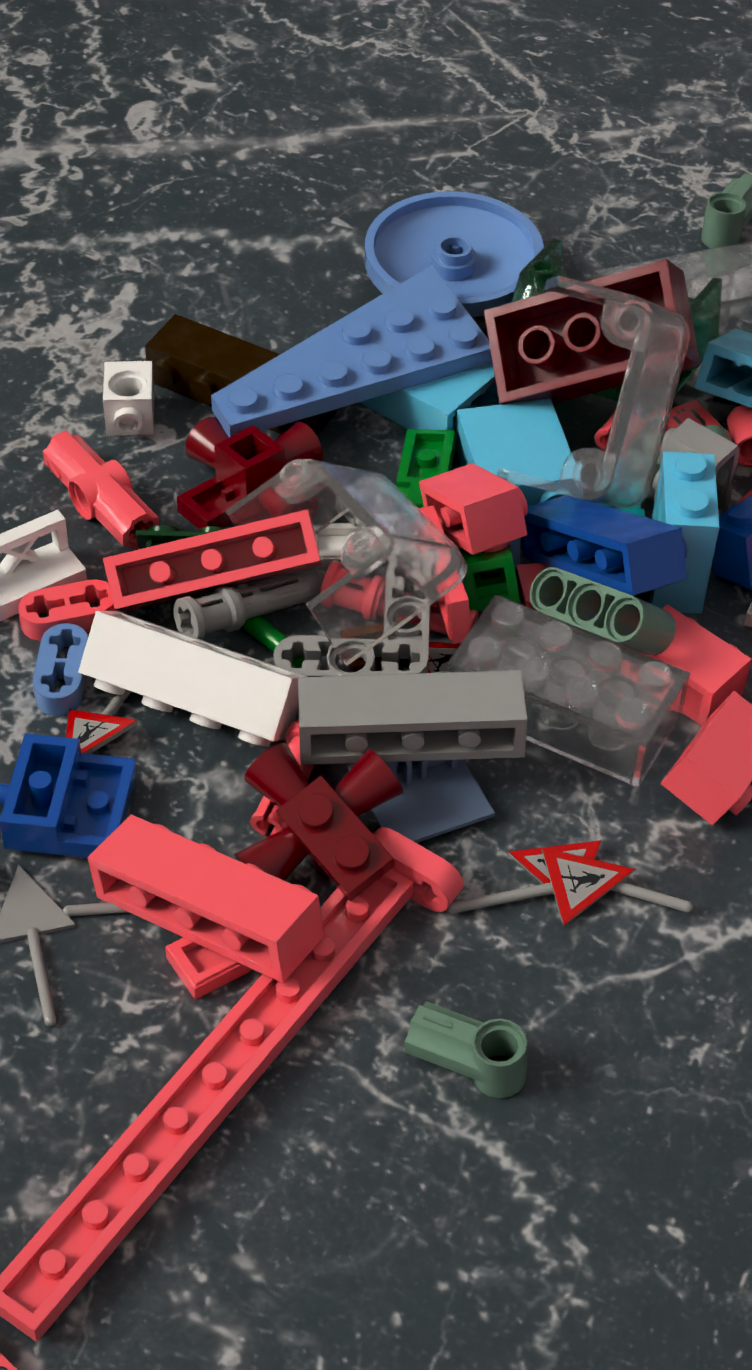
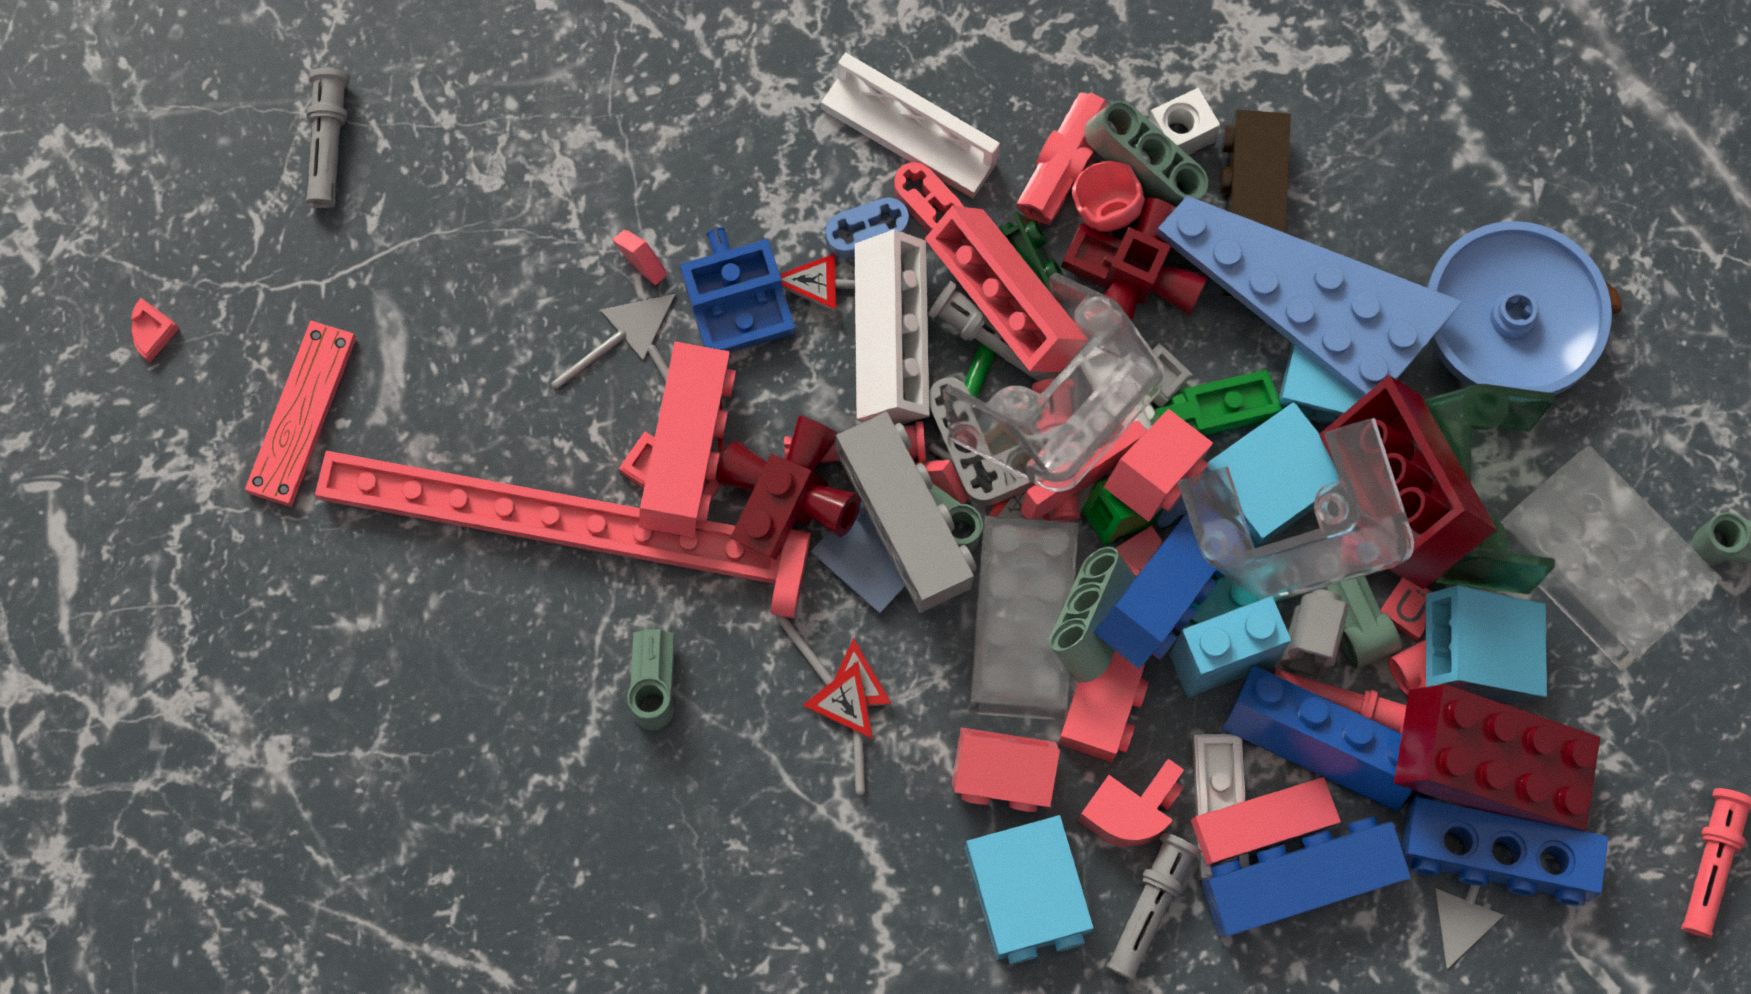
camera: 65 degrees right, 25 degrees up
(141, 420) = (1136, 135): none -> sand green beam
(167, 462) = (1108, 196): none -> coral hair

